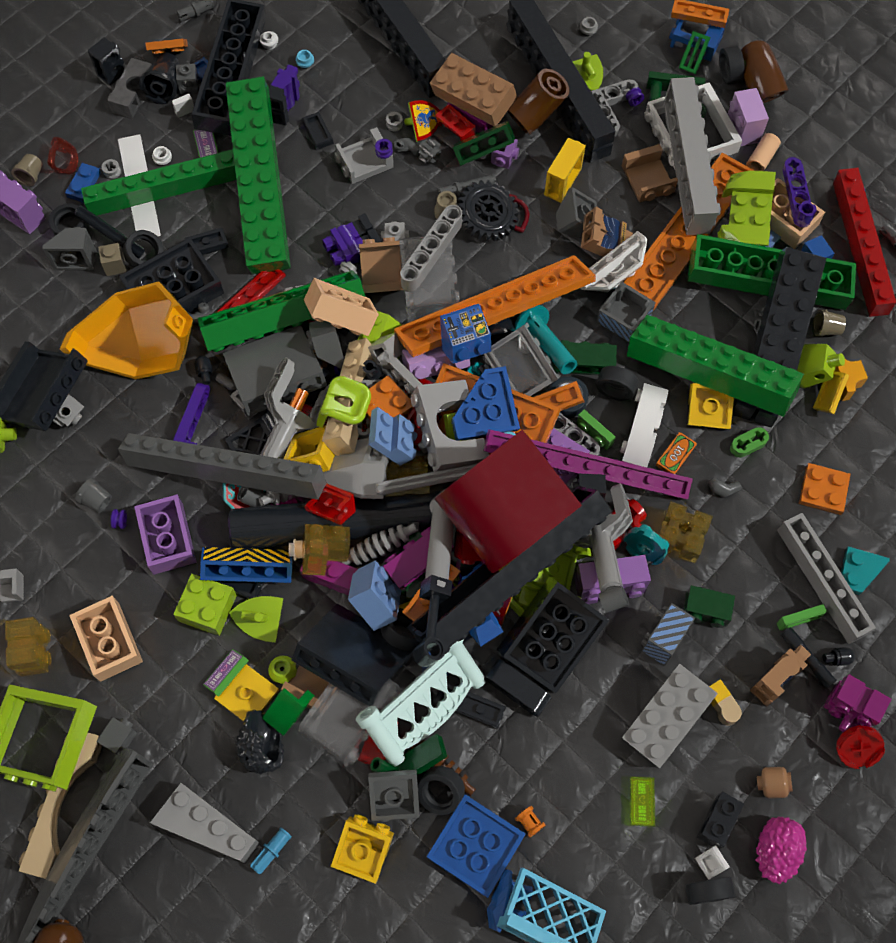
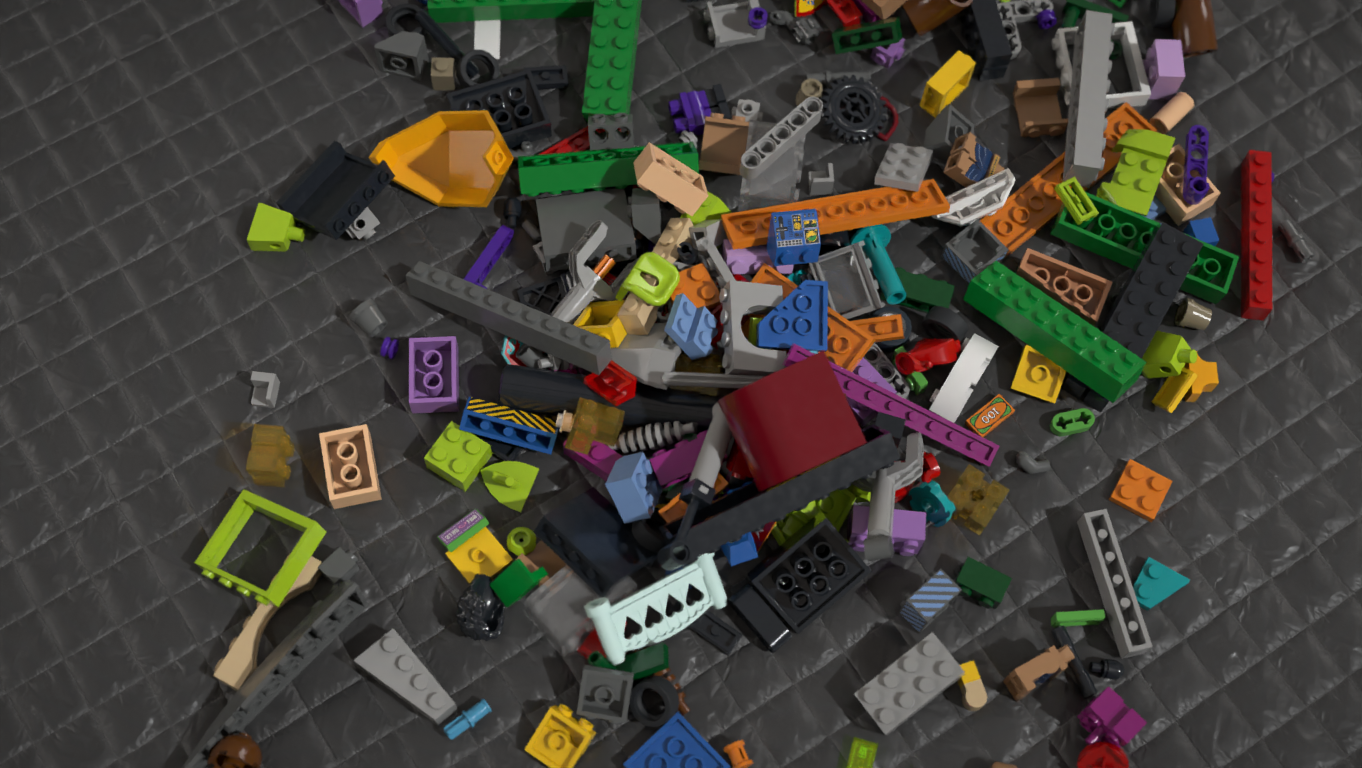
camera: 10 degrees right, 0 degrees up
(278, 282) = (611, 137): none -> dark grey brick
(475, 280) = (821, 181): none -> light grey panel
(545, 250) = (903, 167): none -> light grey plate
(608, 412) = (926, 354): none -> red hips
(702, 247) = (1072, 201): none -> lime tile
(715, 321) = (1066, 284): none -> nougat wedge

